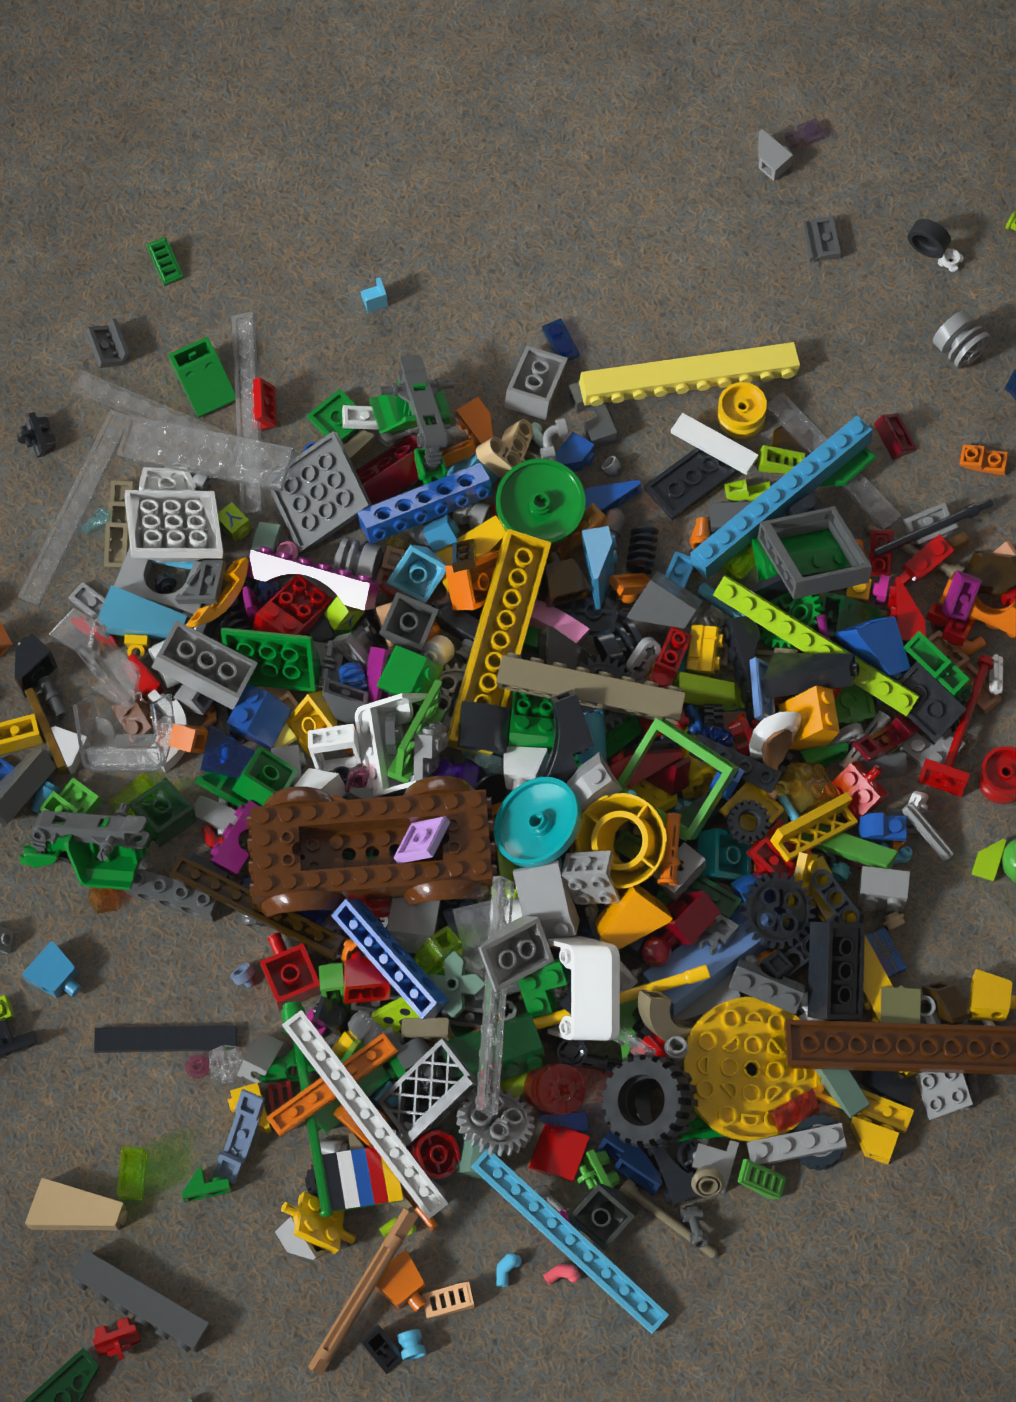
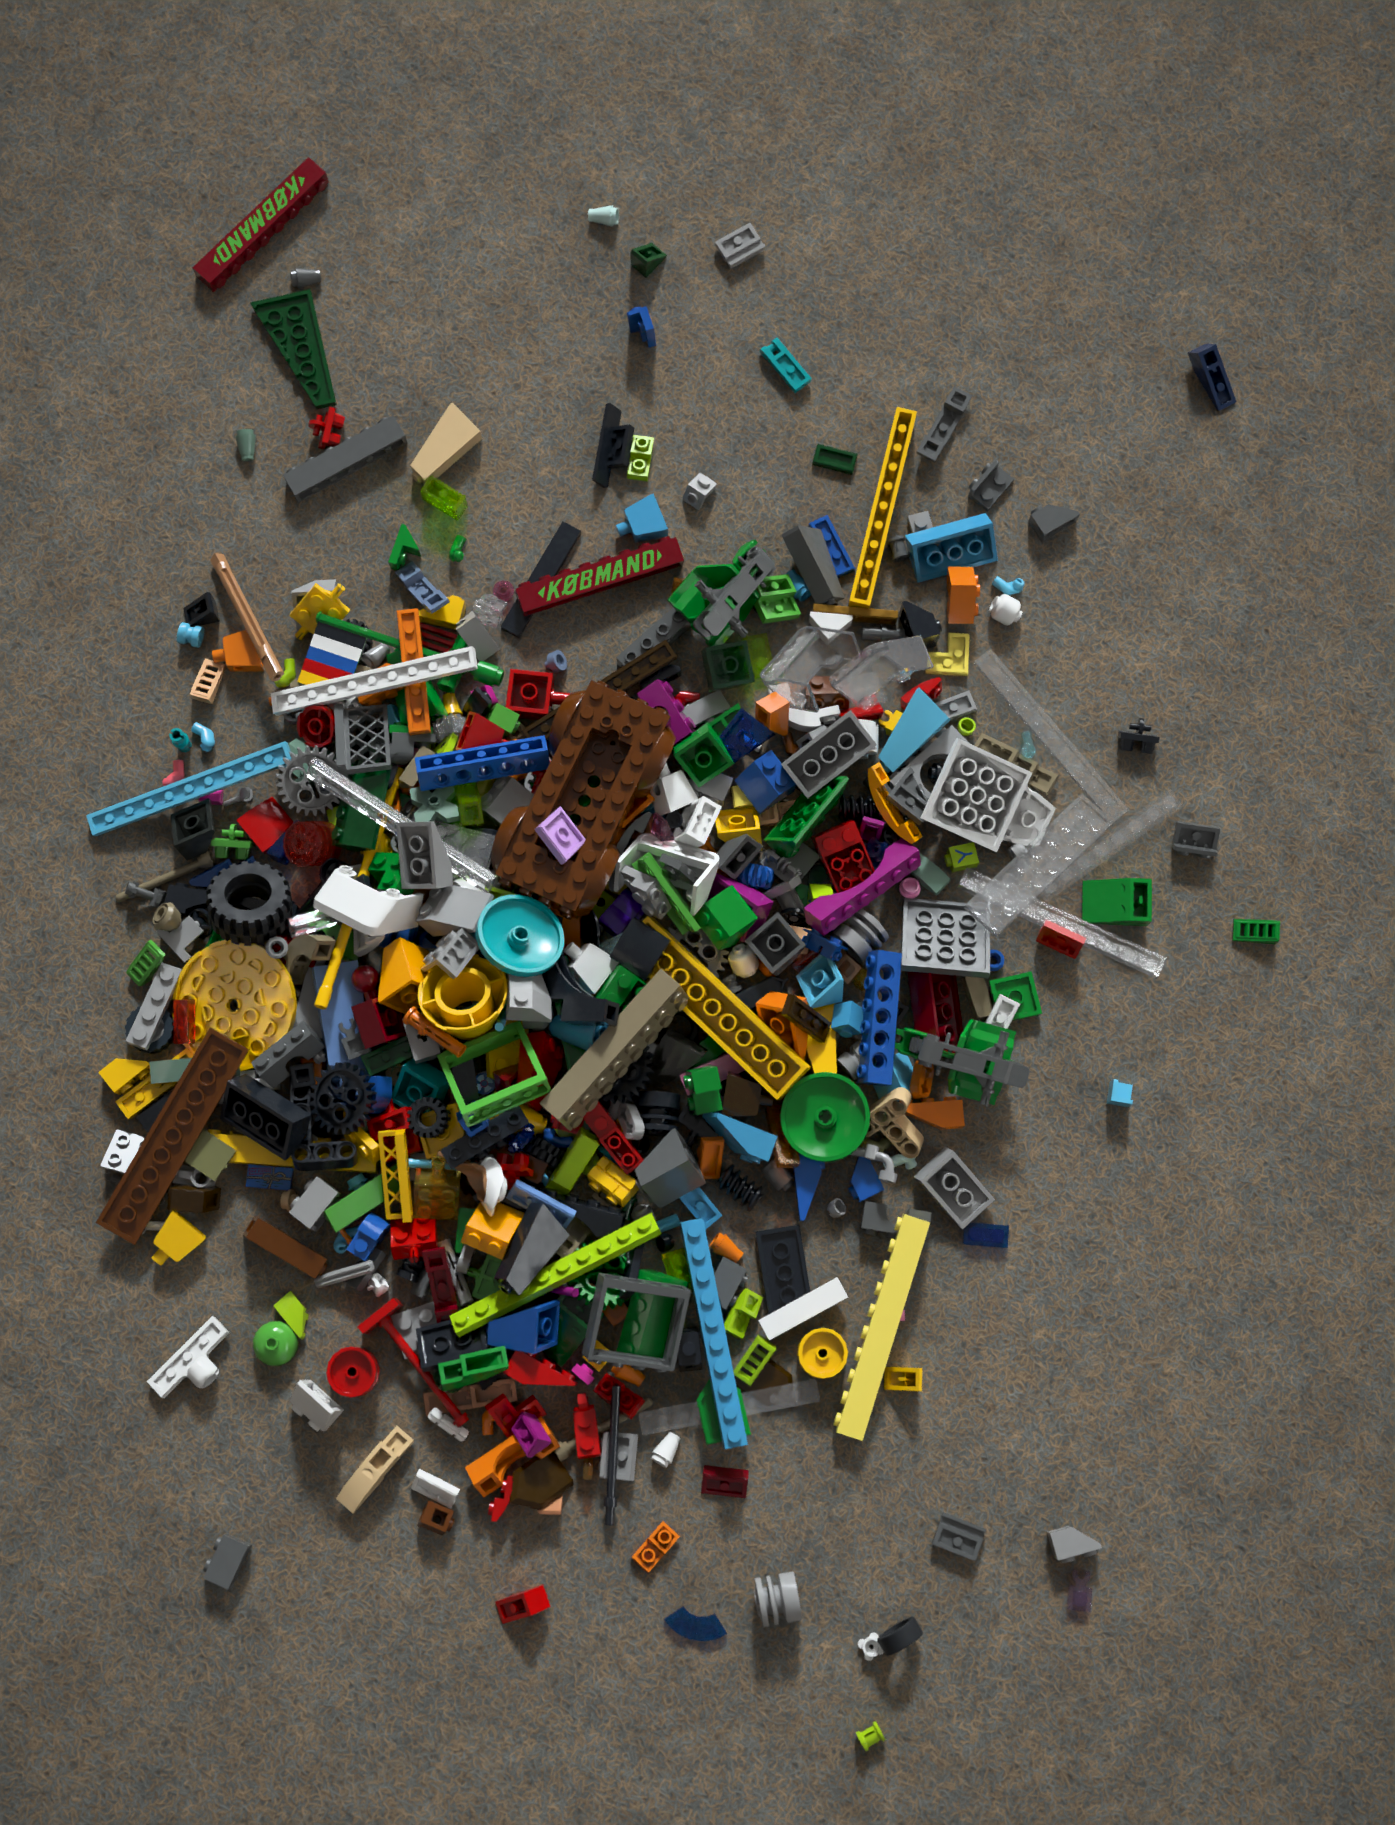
camera: 115 degrees right, 10 degrees up
(40, 626) = (956, 659): none -> light yellow tile
(102, 580) = (968, 724): none -> lime hinge
(135, 980) = (599, 576): none -> dark red brick
(180, 1137) = (455, 552): none -> green arm
(384, 575) = (831, 947): none -> blue hinge
(523, 1287) = (180, 740): none -> teal pin
(576, 611) = (704, 1089): none -> green brick
(719, 335) = (903, 1379): none -> yellow slope
(889, 781) = (408, 1273): none -> black wheel
(900, 491) = (665, 1451): none -> white cone
(937, 900) = (285, 1247): none -> reddish brown slope

